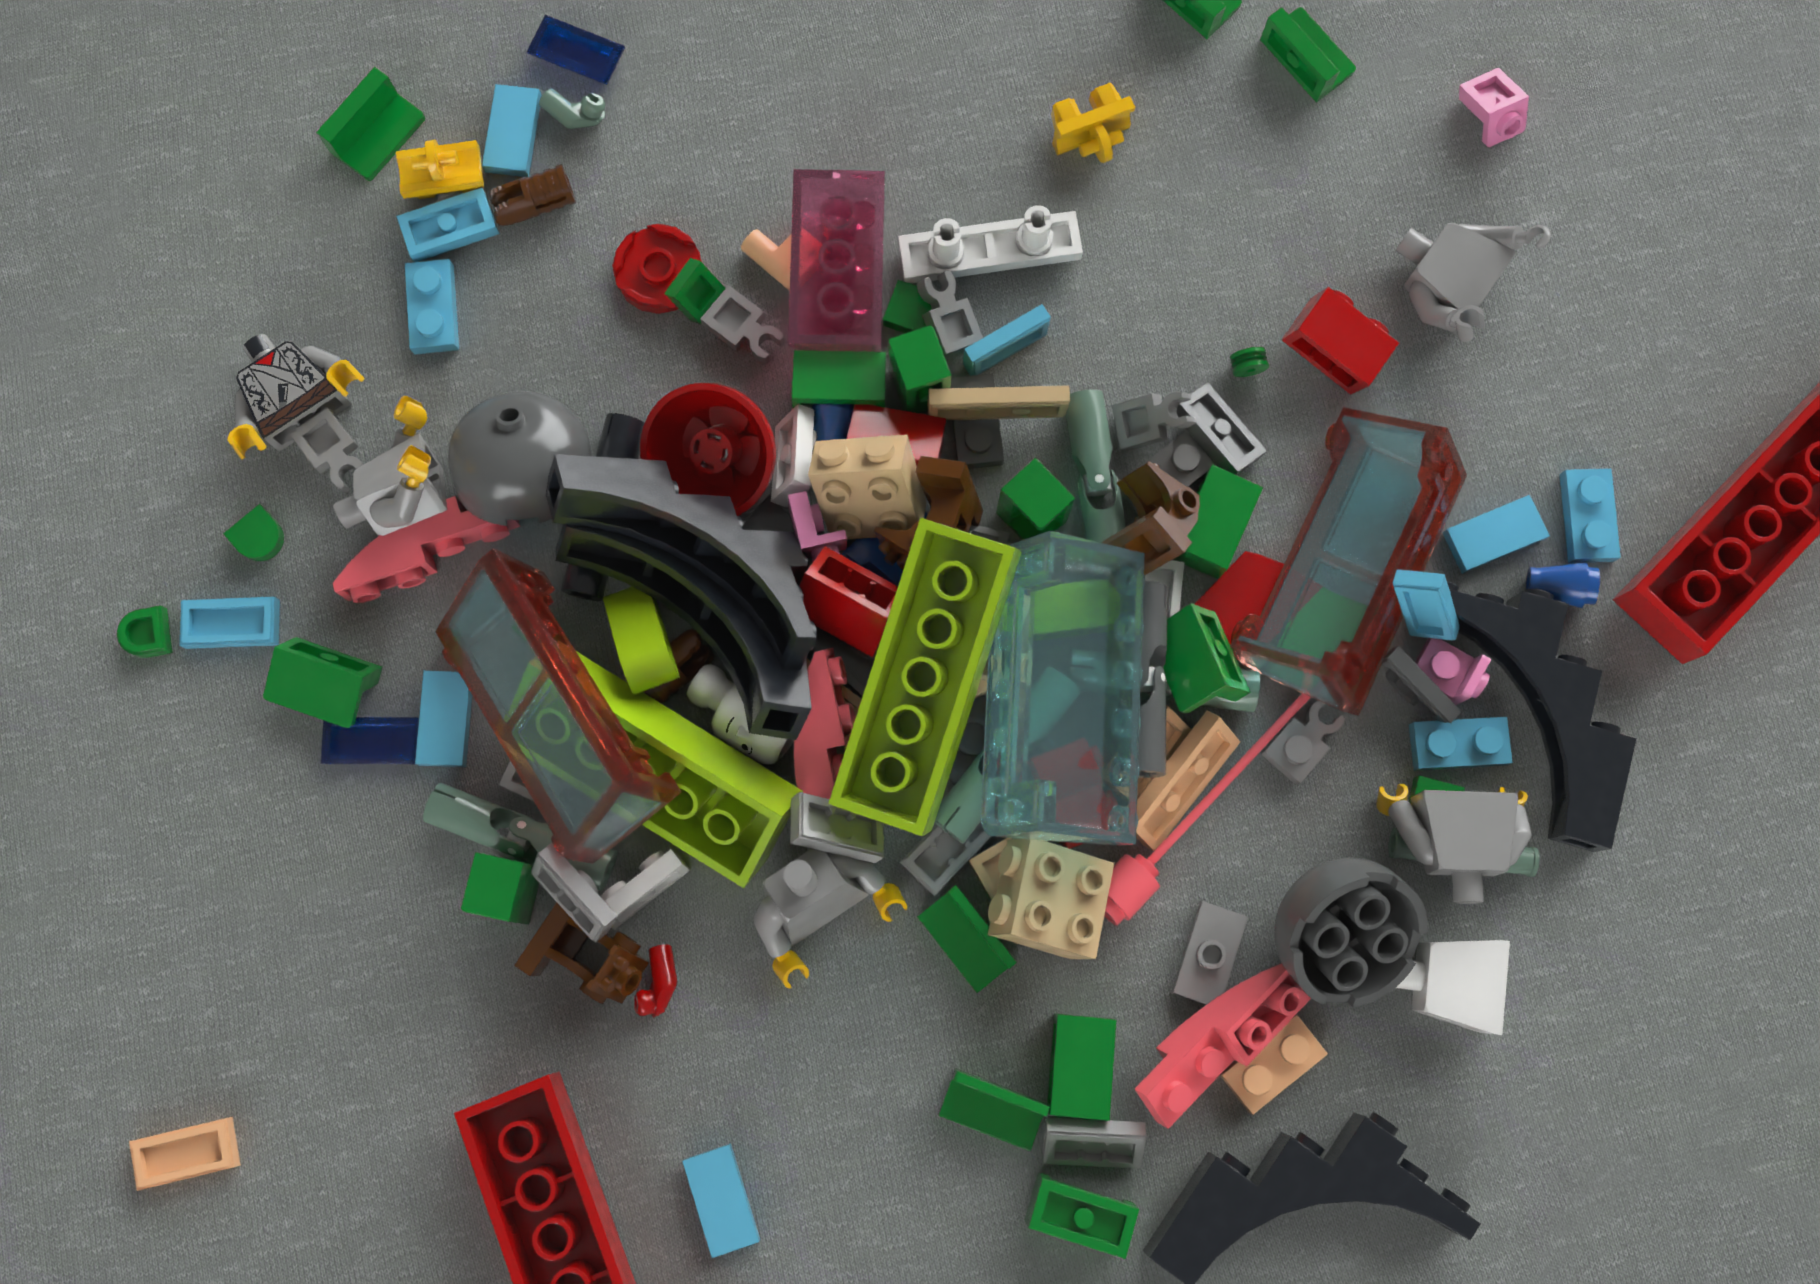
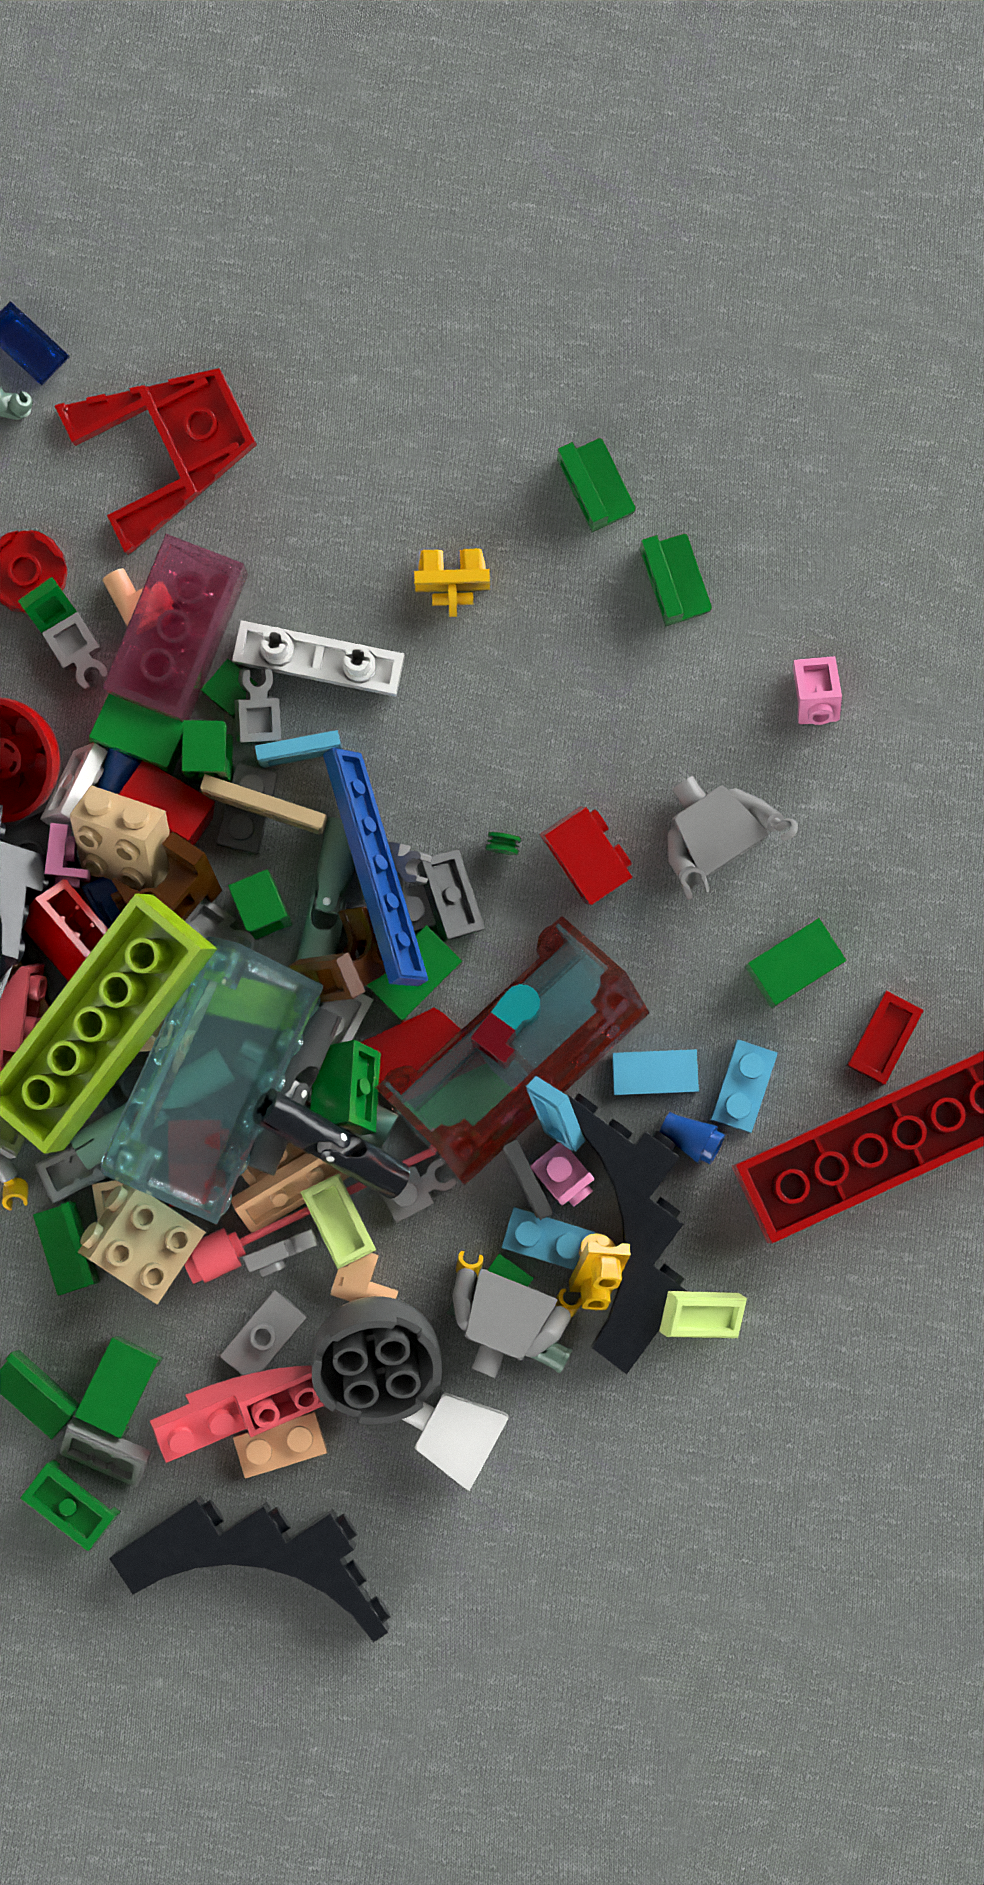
camera: 20 degrees right, 5 degrees up
(776, 64) = (198, 427): none -> red wing
(1141, 425) = (375, 868): none -> blue tile
(1187, 868) = (271, 1258): none -> light grey plate
(1214, 716) = (330, 1143): none -> black piece
(1243, 802) = (338, 1221): none -> yellowish green tile
(1280, 855) = (355, 1281): none -> light nougat piece
(1331, 535) = (514, 1011): none -> leg
(1535, 751) = (598, 1270): none -> yellow hips
(1591, 373) = (795, 963): none -> green panel
(1659, 758) = (703, 1314): none -> yellowish green tile
(1707, 417) = (884, 1037): none -> red tile

